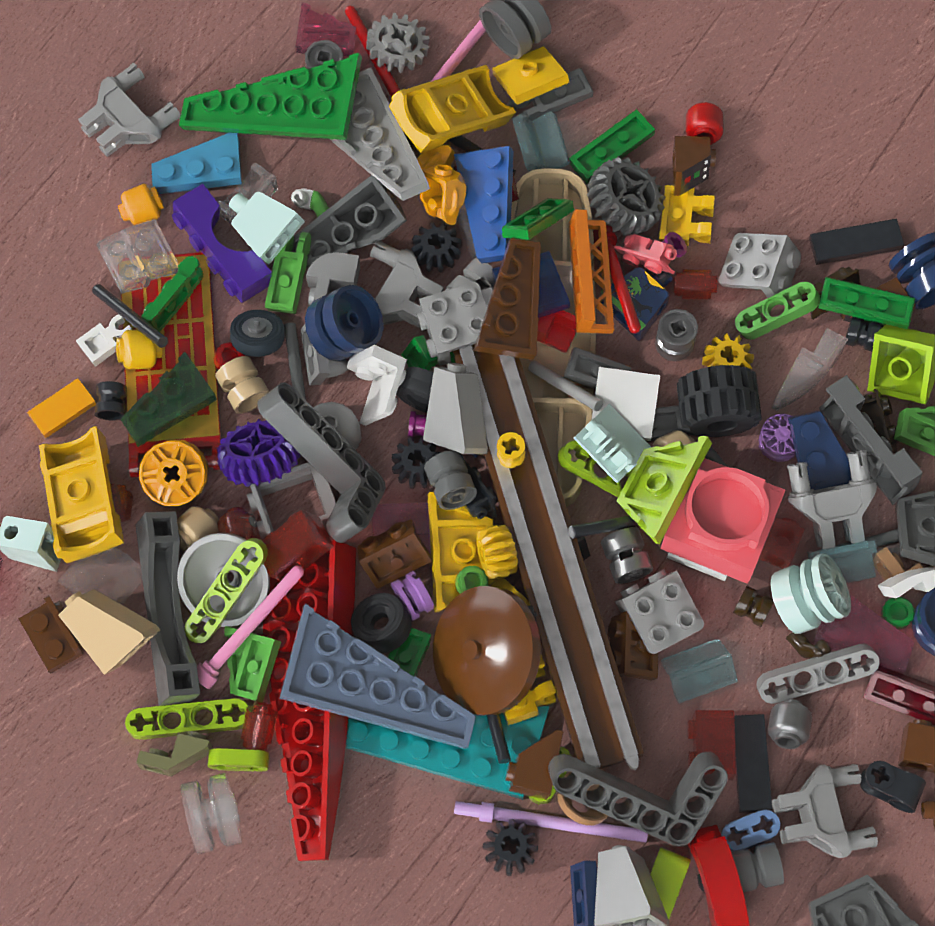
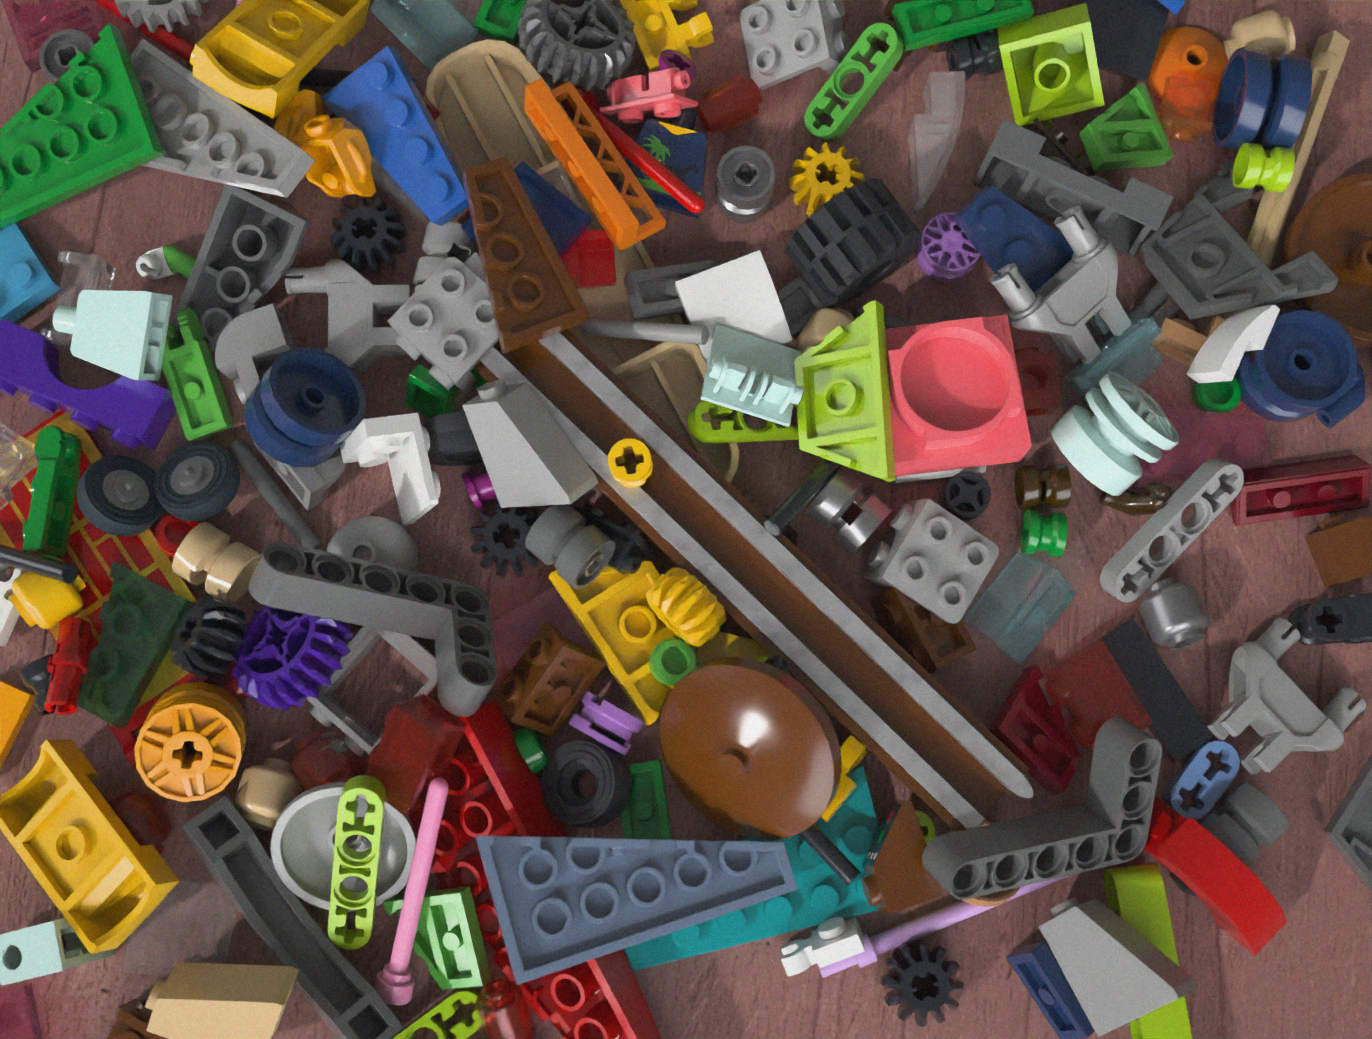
camera: 30 degrees left, 10 degrees up
(128, 394) = (67, 666): none -> red pin
(210, 317) = (119, 495): none -> black wheel
(216, 421) = (208, 637): none -> black gear
(361, 586) = (531, 748): none -> green tile
(472, 792) = (830, 943): none -> white plate
(537, 218) = (481, 126): green tile -> none
(664, 746) = (1037, 733): none -> dark red wing
(703, 580) = (972, 491): none -> black wheel
(738, 633) = (1043, 533): none -> green wheel

